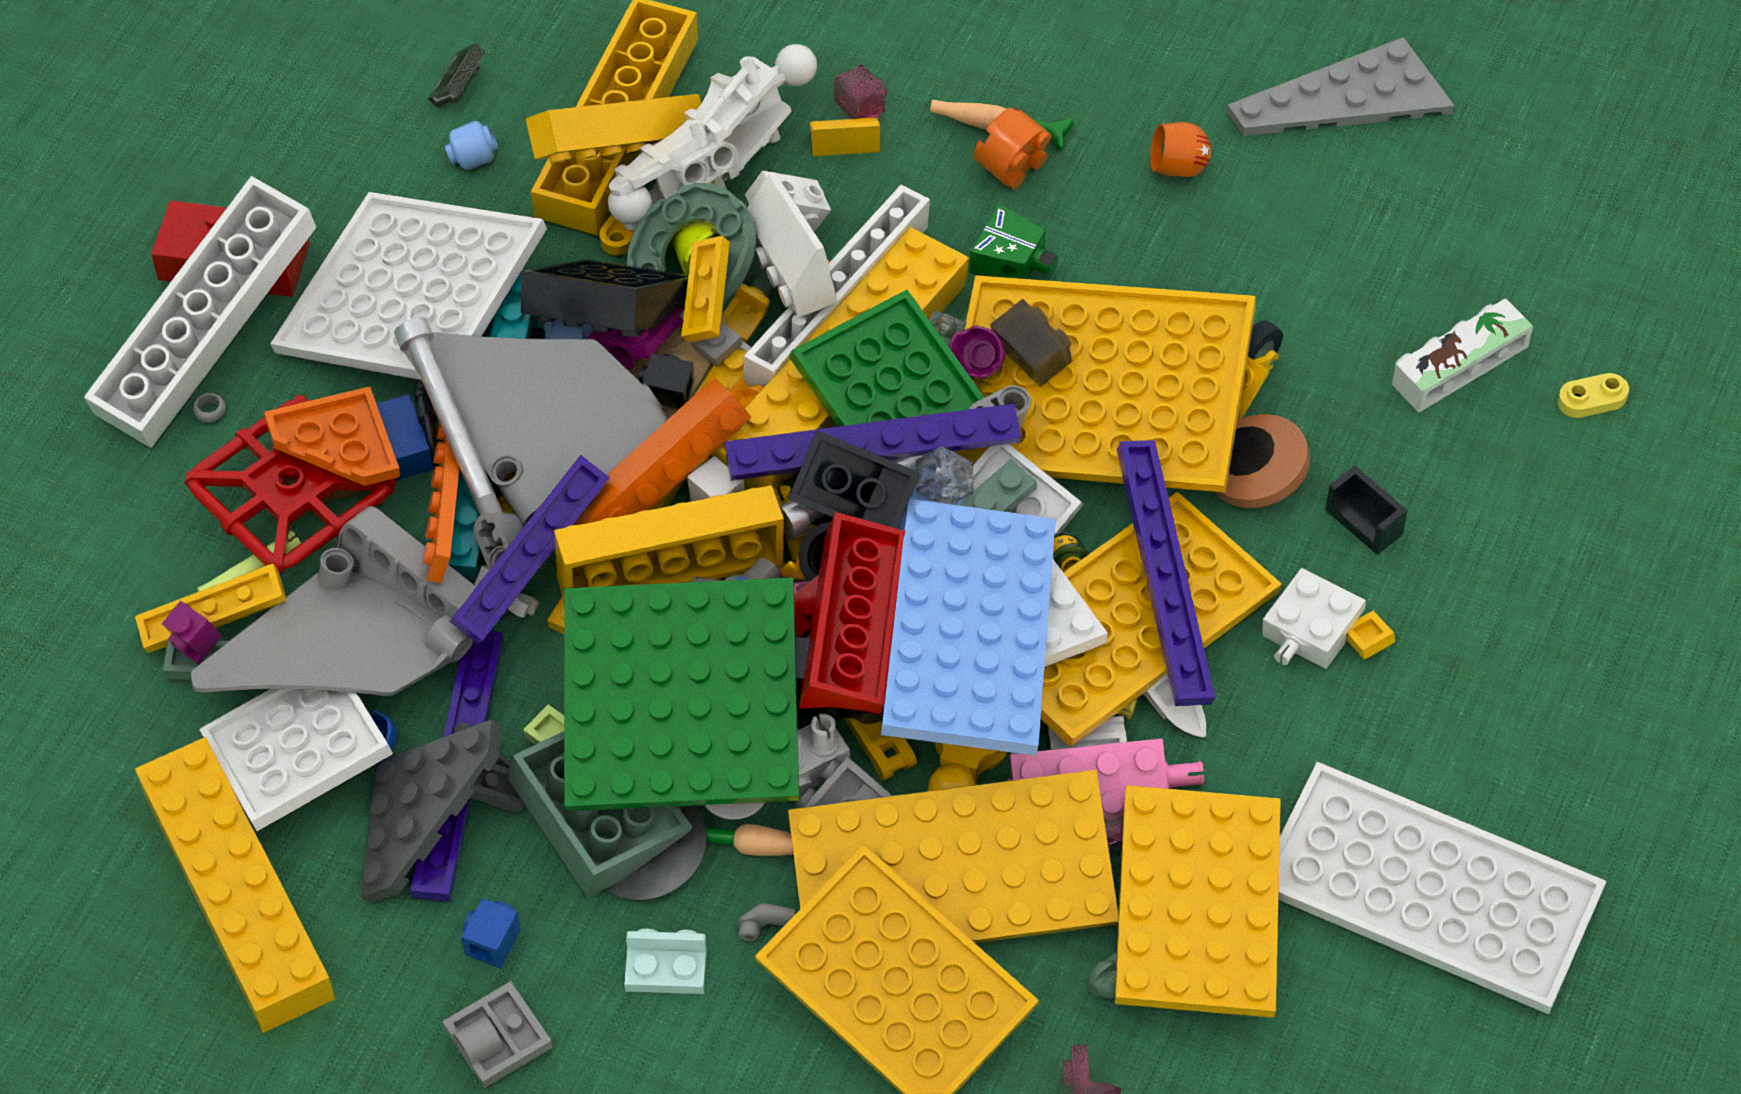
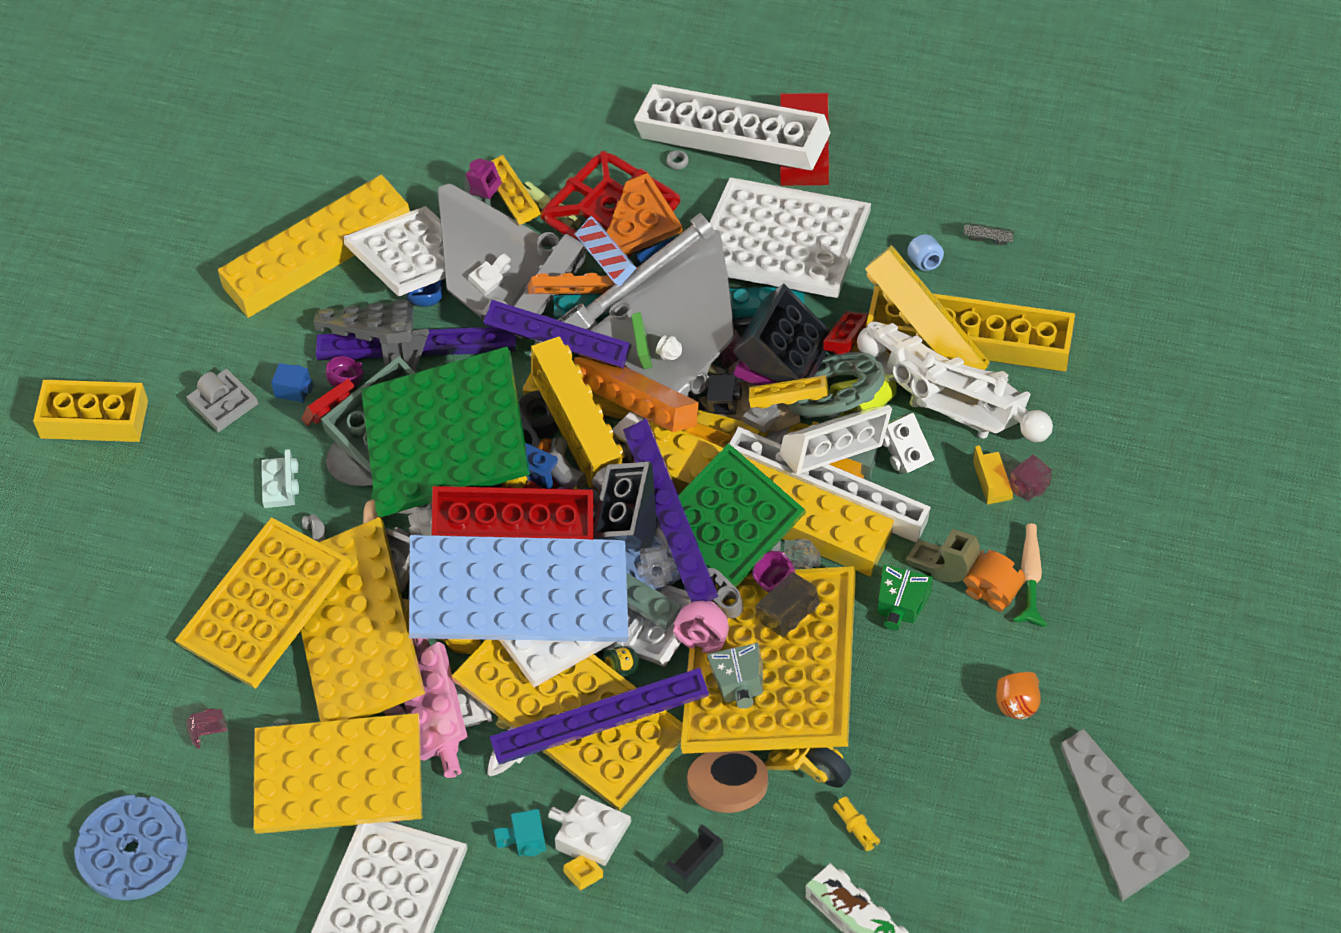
camera: 85 degrees right, 0 degrees up
(384, 639) = (489, 277): none -> white plate
(398, 473) = (605, 251): none -> light blue tile
(493, 857) = (341, 369): none -> magenta hair
(553, 874) = (327, 402): none -> red plate
(575, 442) = (641, 340): none -> bright green tile
(590, 239) = (845, 332): none -> red plate
(597, 414) = (669, 348): none -> white plate
(989, 167) = (946, 562): none -> olive arch
(1051, 433) = (702, 625): none -> bright pink cylinder
(1134, 403) = (738, 673): none -> sand green torso
(1307, 693) = (526, 833): none -> teal brick
(1330, 341) = (856, 823): none -> yellow pin

